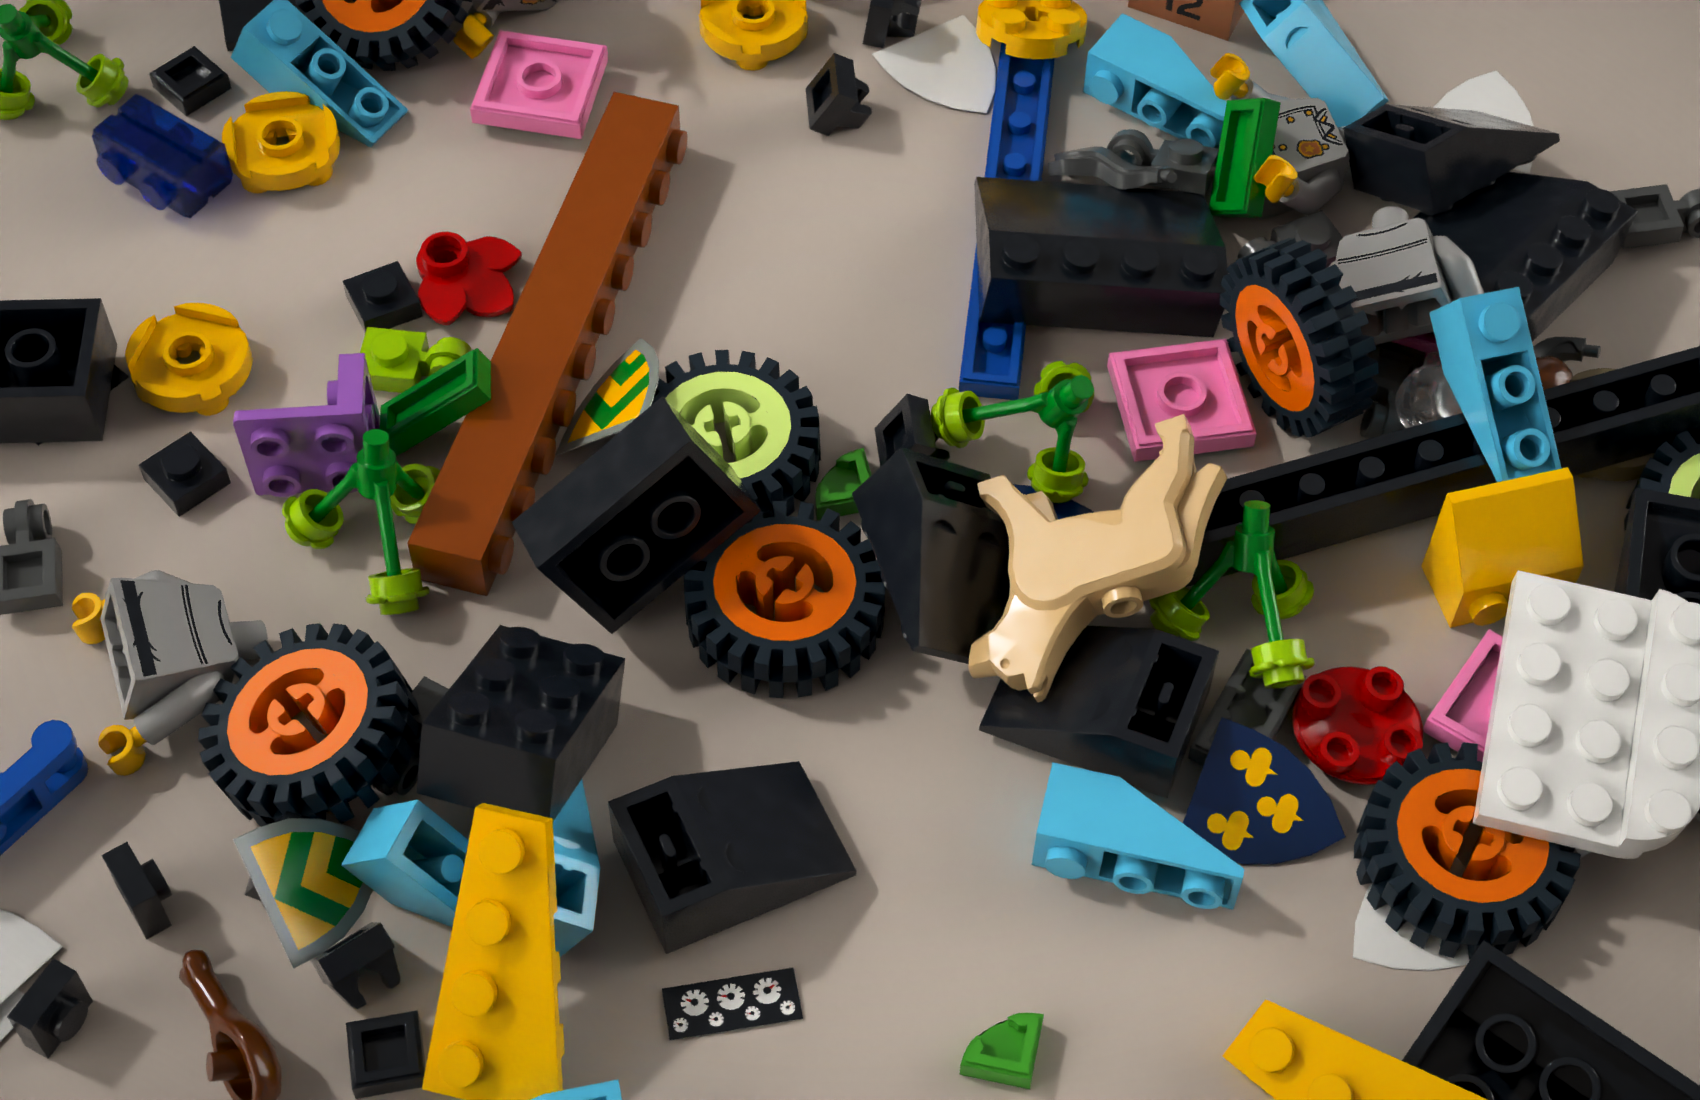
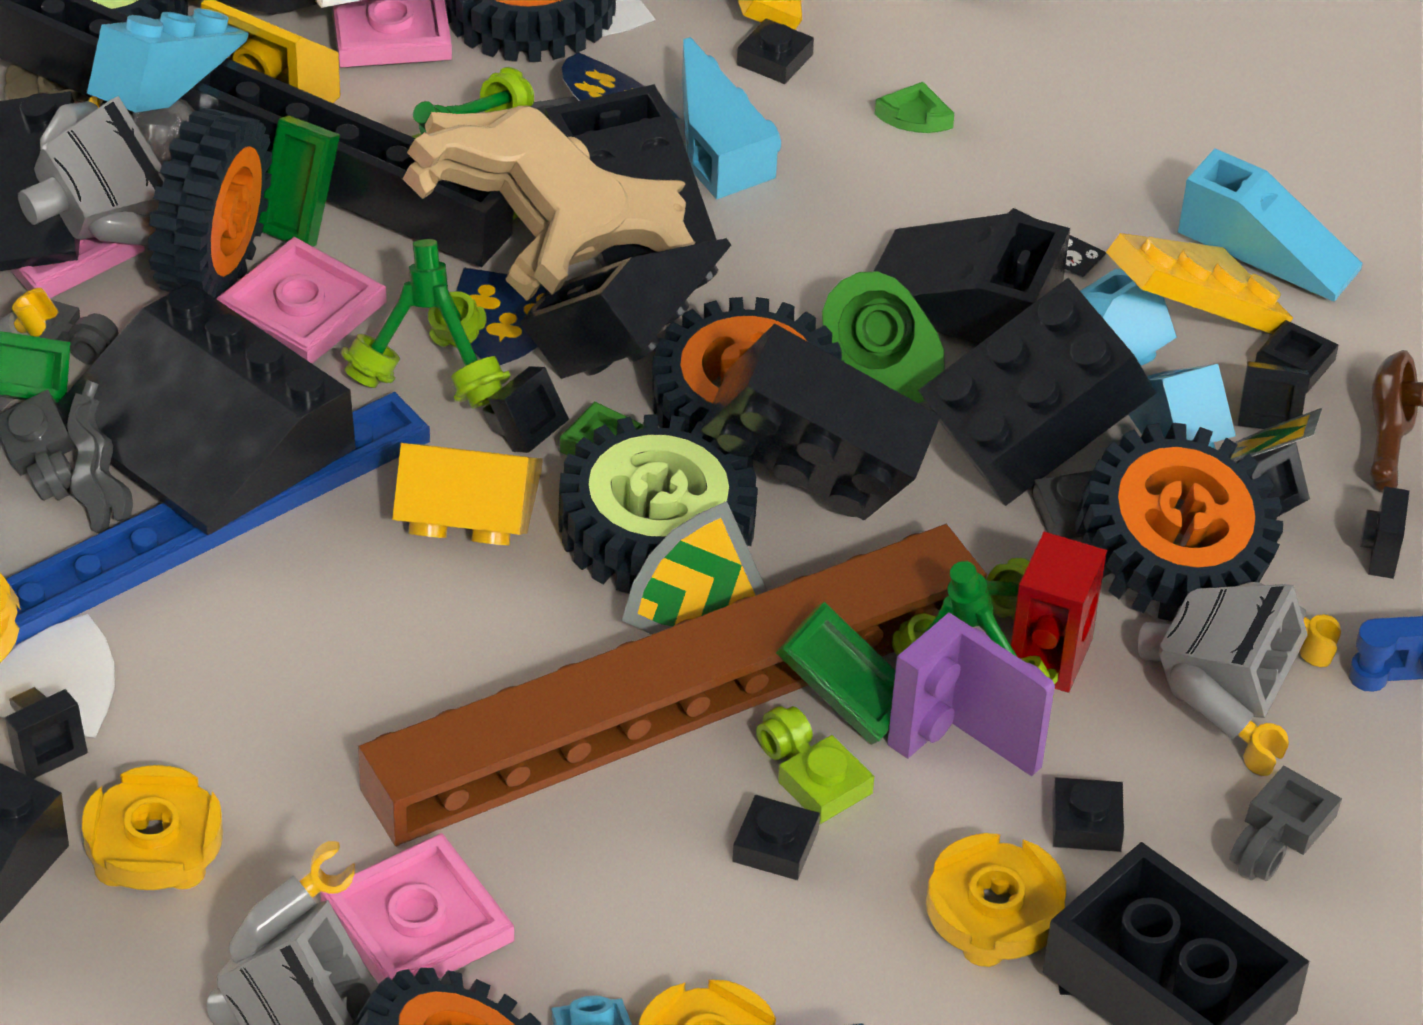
camera: 135 degrees left, 10 degrees down
(323, 551) = (1059, 605): none -> red brick
(465, 276) = (688, 799): red plate -> none
(730, 728) = (884, 332): none -> bright green piece
(836, 97) = (202, 692): black tile -> none
(867, 349) = (465, 490): none -> yellow slope
(1202, 1003) = (775, 51): none -> black plate
(1307, 443) = (300, 180): none -> green tile
(1356, 722) = (463, 74): red dish -> none

